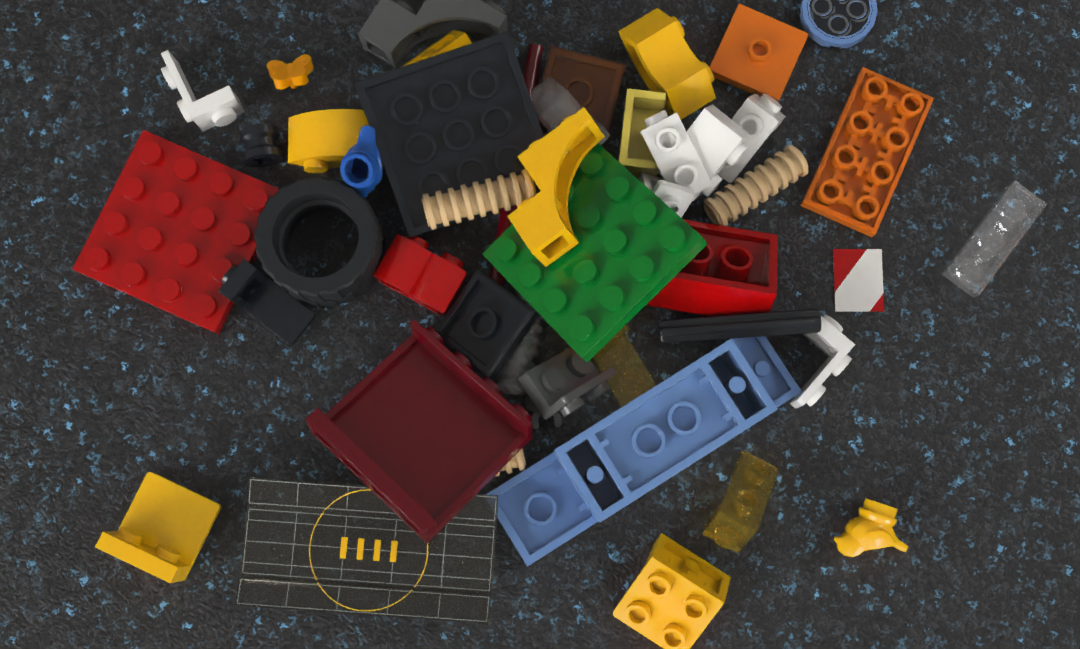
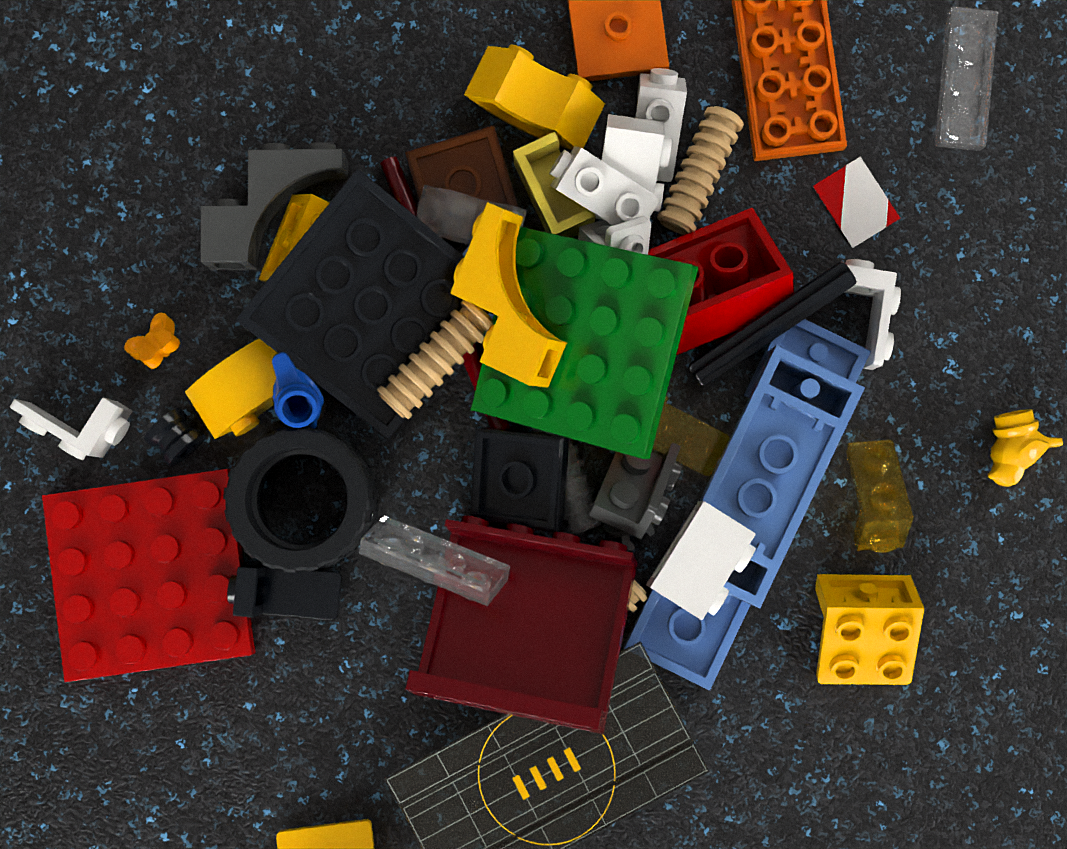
camera: 30 degrees left, 5 degrees up
(387, 343) = (435, 560): none -> clear plate
(421, 274) = (422, 467): red brick -> none
(578, 456) = (703, 560): none -> white brick

